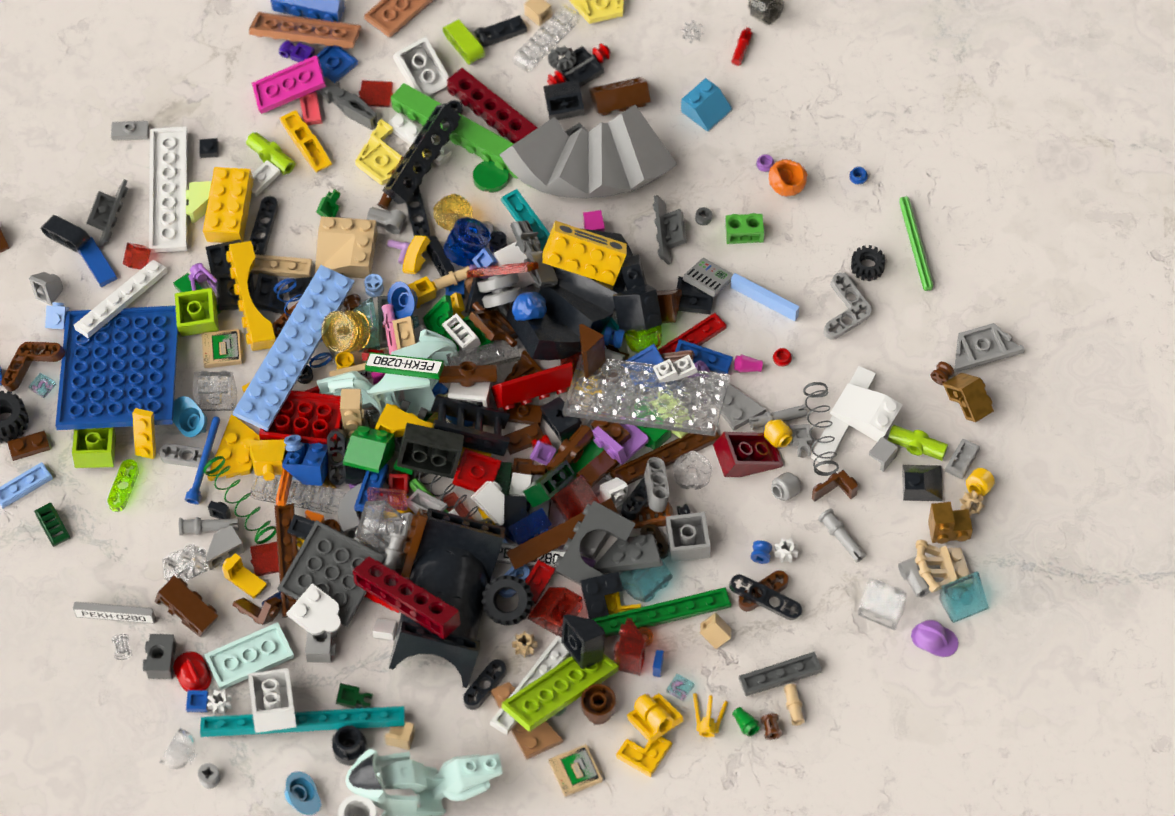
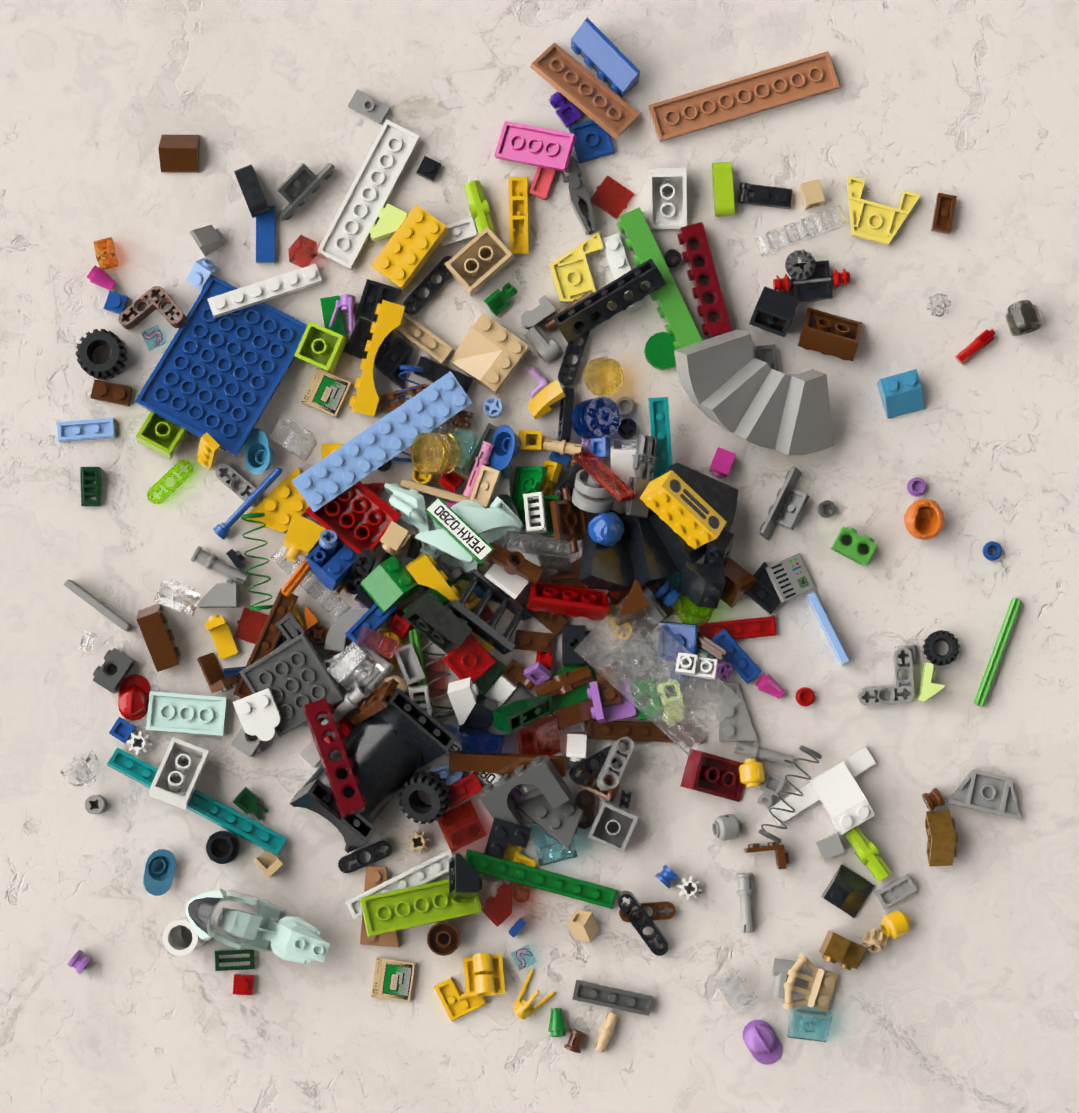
camera: 30 degrees right, 25 degrees up
(294, 185) = (479, 261): none -> tan slope
(370, 198) = (539, 314): none -> light grey leg
(876, 294) = (927, 688): none -> yellowish green slope

